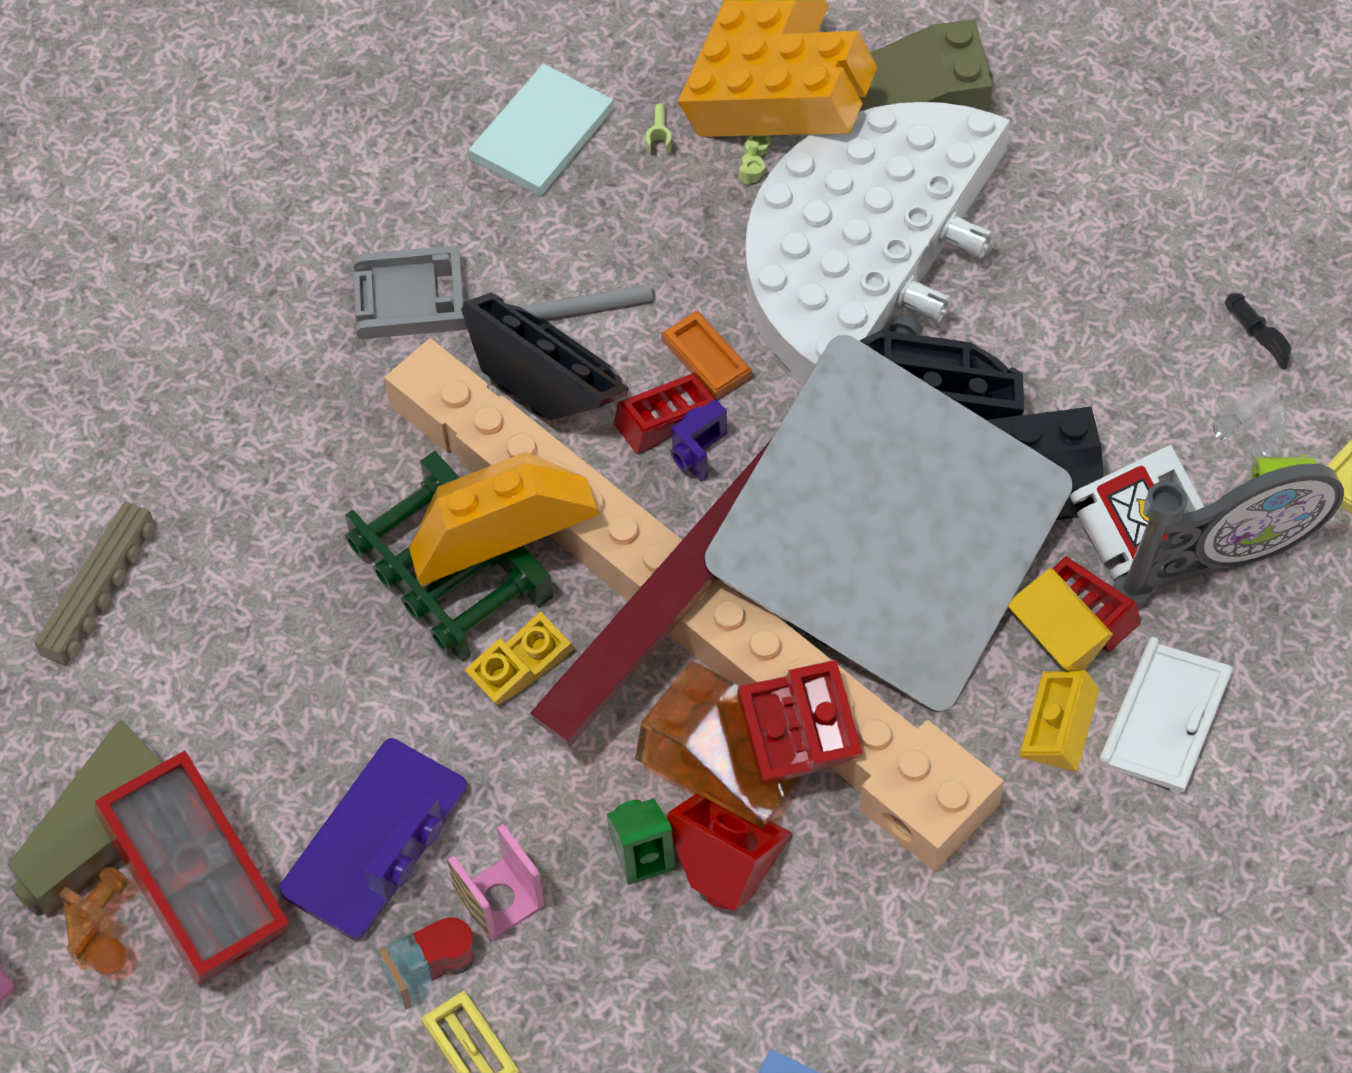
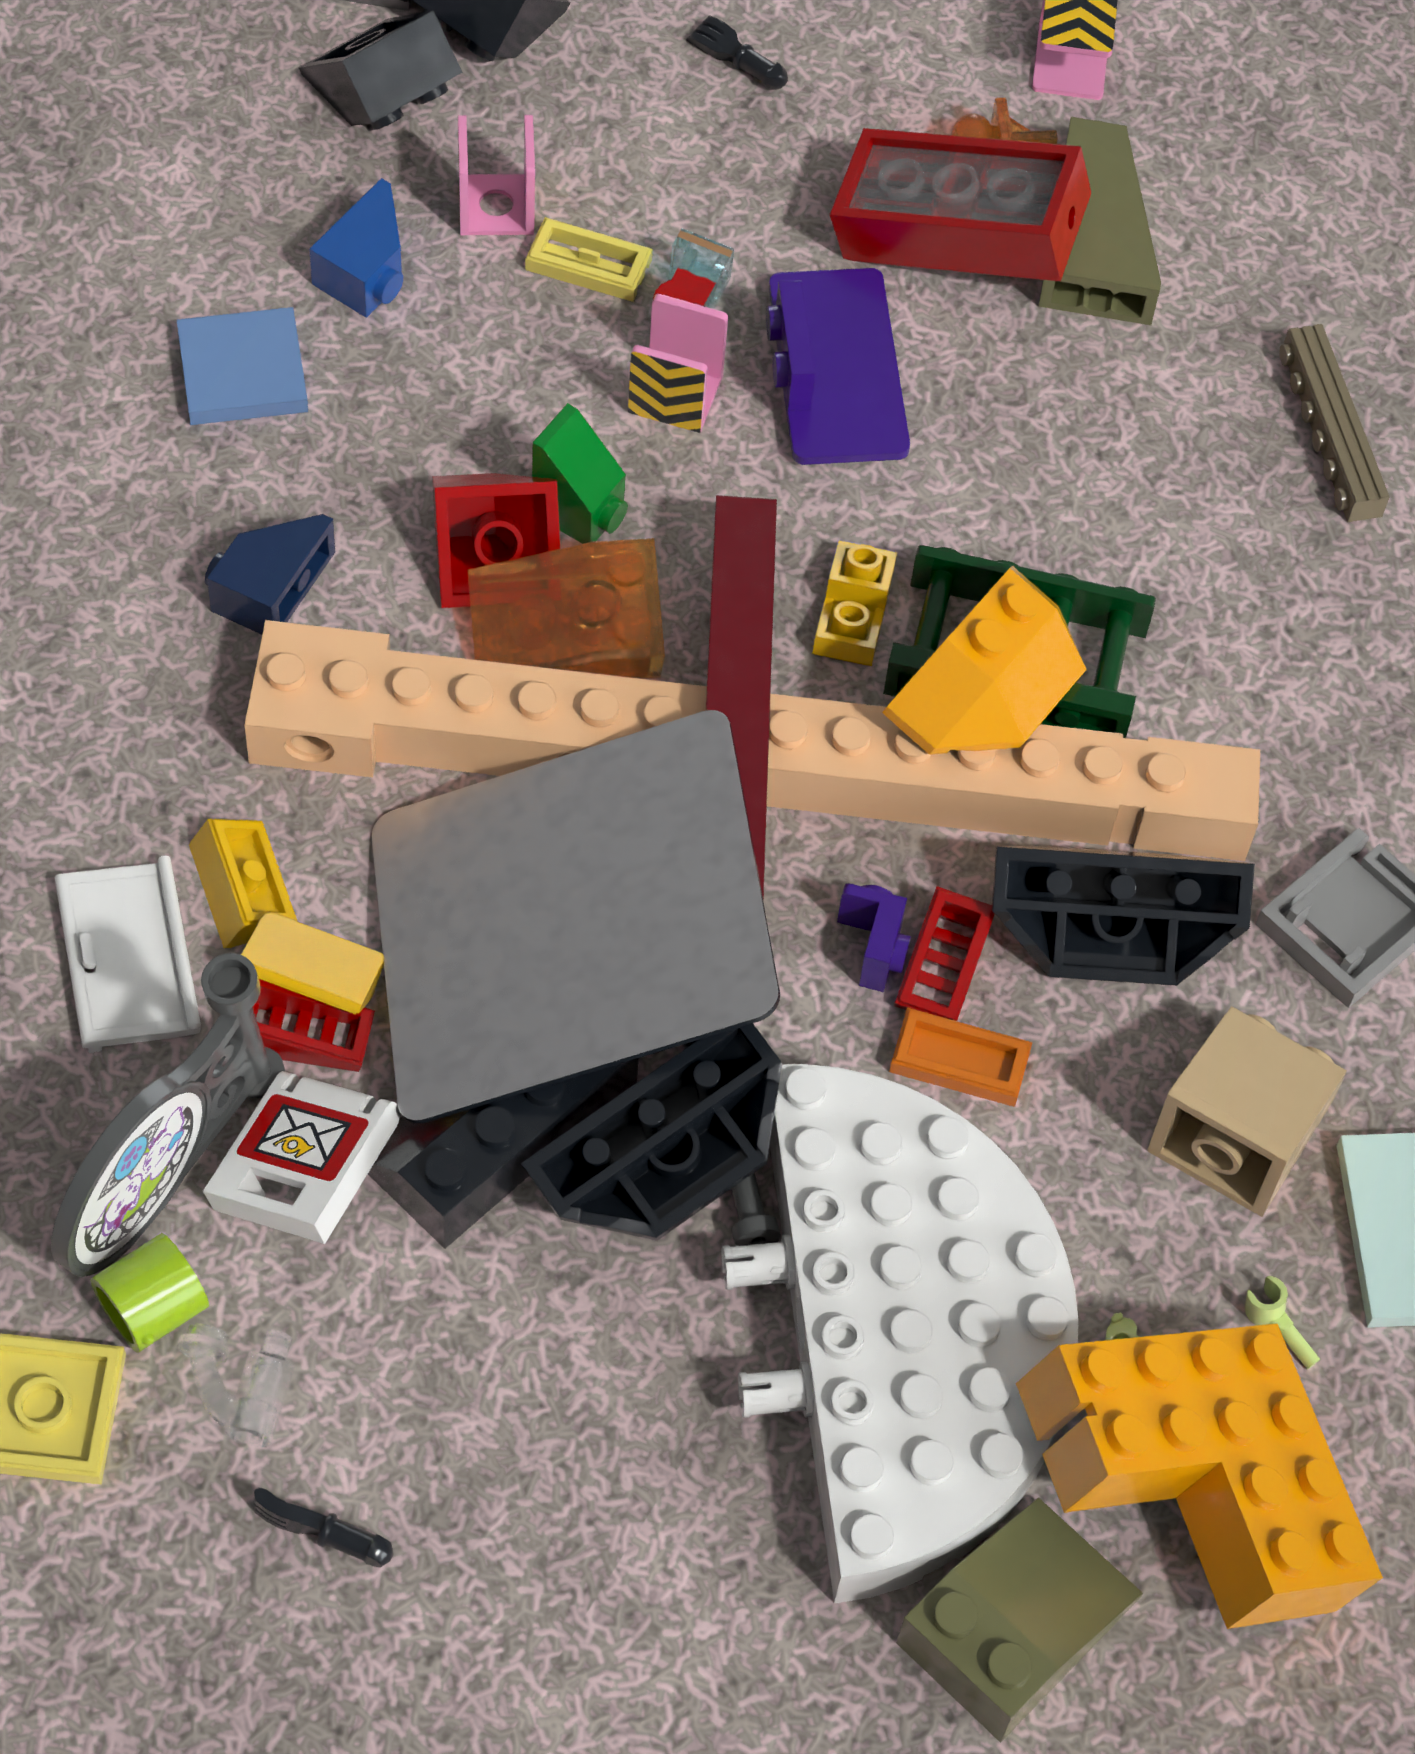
camera: 135 degrees right, 0 degrees up
(581, 215) = (1245, 1109): none -> tan slope
(591, 302) = (1166, 1018): light grey bar -> none
(799, 722) = (500, 644): red slope -> none
(897, 915) = (269, 571): none -> dark blue slope

